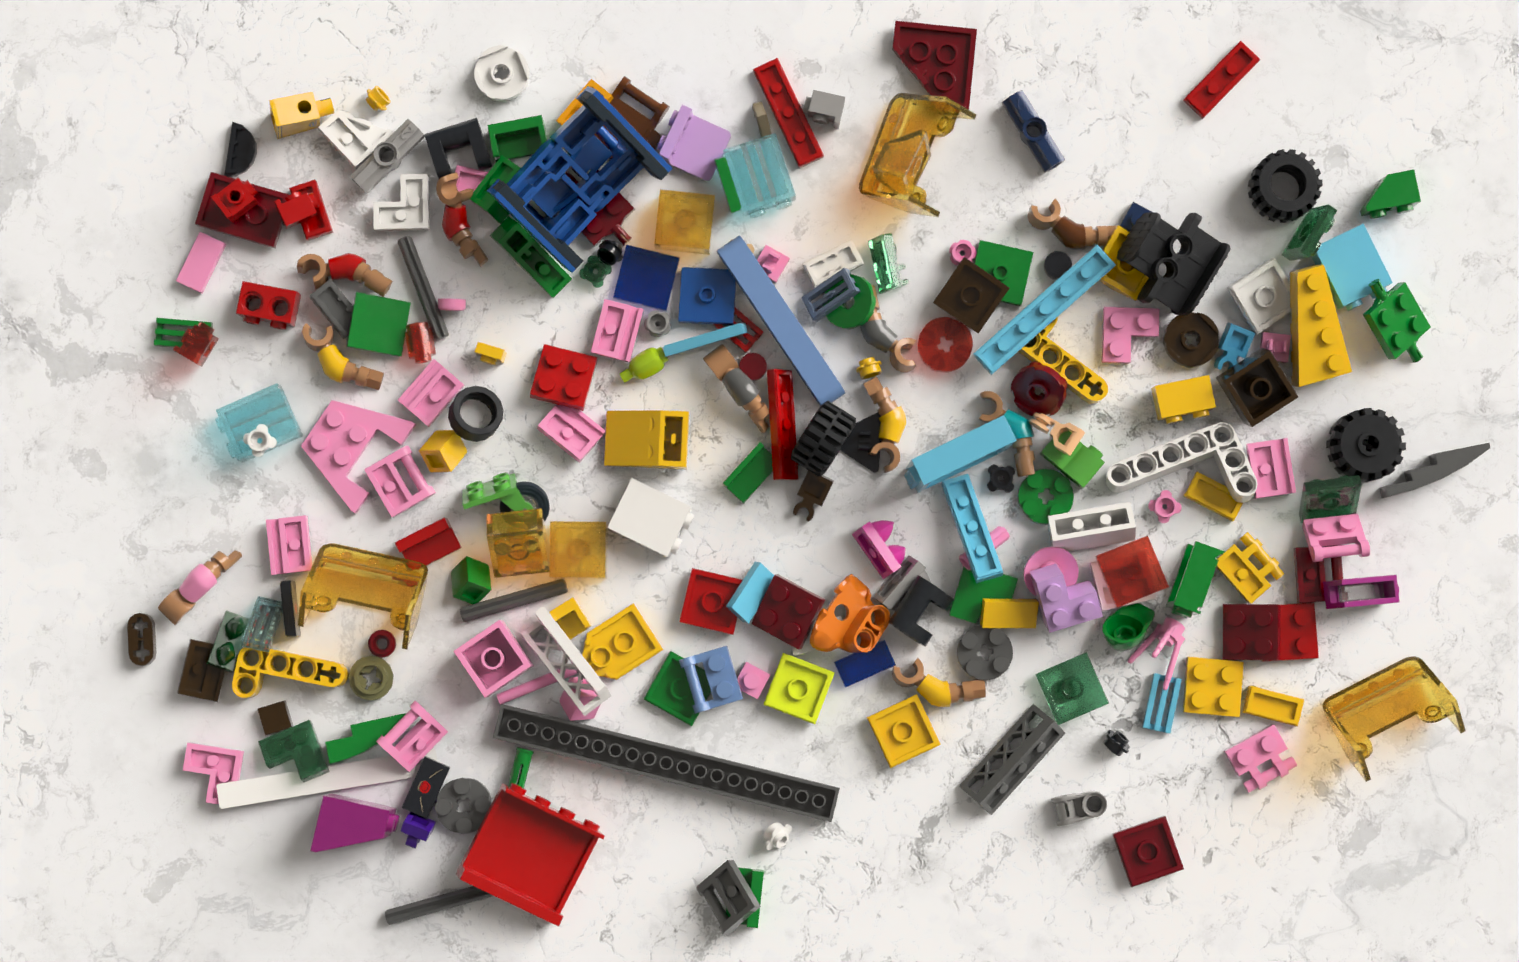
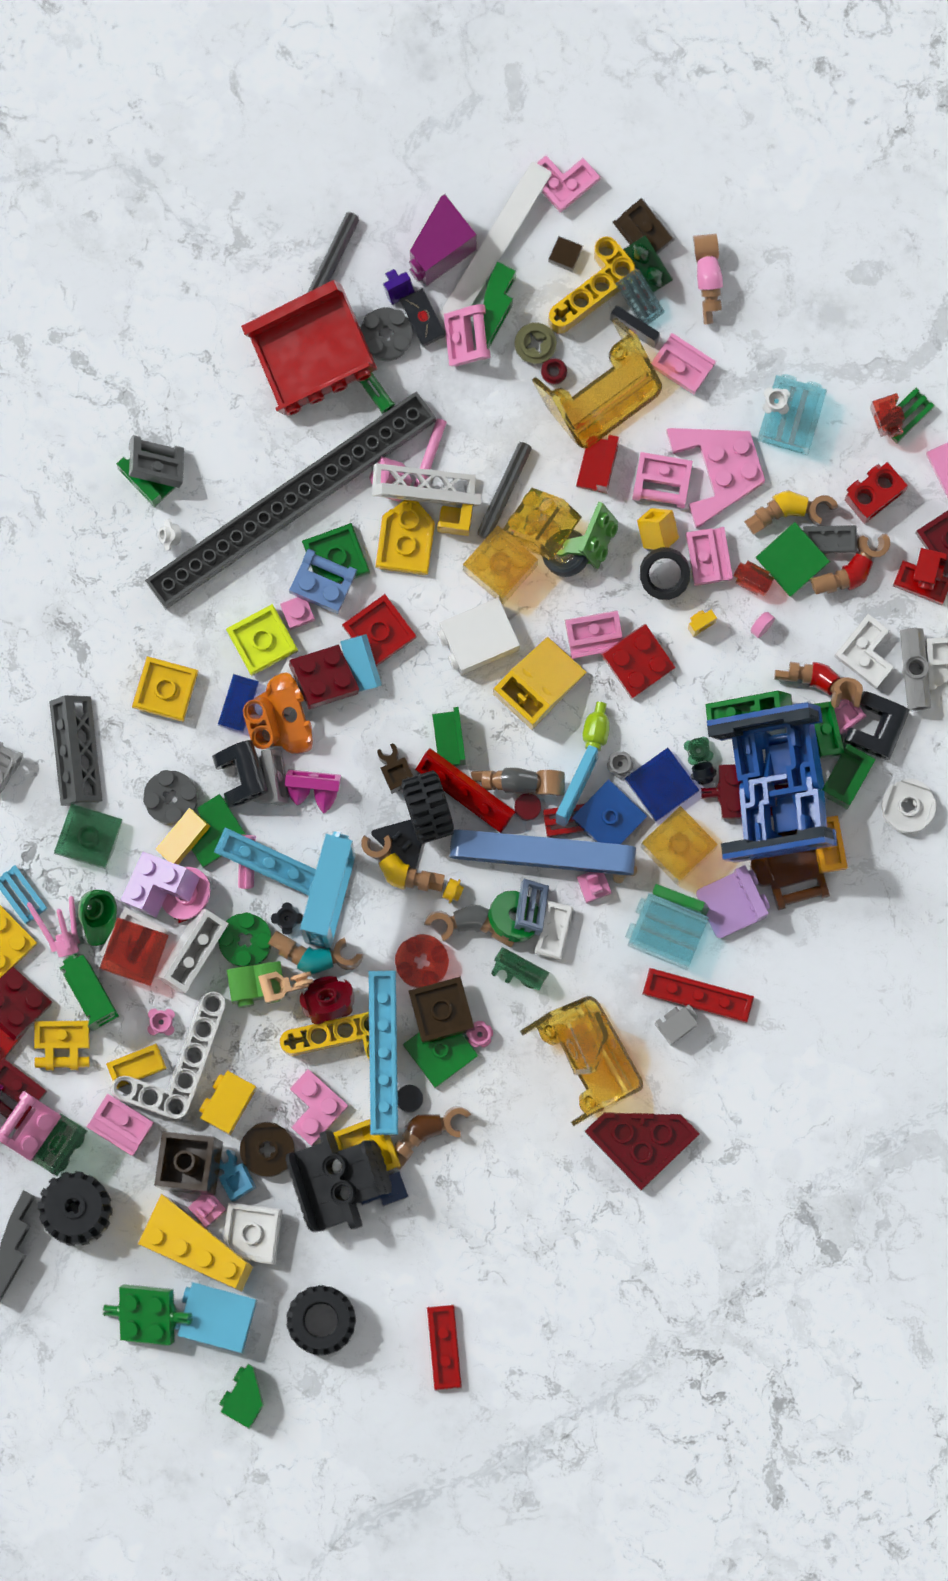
camera: 130 degrees right, 5 degrees down
(135, 639) = (700, 210): dark brown beam -> none
(298, 744) = (528, 254): clear green plate -> none
(423, 287) = (794, 615): dark grey axle -> none
(471, 580) = (545, 470): green panel -> none
(493, 658) = (473, 438): bright pink brick -> none
(617, 330) = (639, 728): bright pink plate -> none
(762, 119) = (708, 969): dark tan tile -> none
(940, 692) = (168, 739): medium nougat piece -> none
(1023, 116) = (507, 1163): dark blue piece -> none
(1116, 742) = (20, 835): black plate -> none
(1307, 236) = (271, 1311): clear green plate -> none

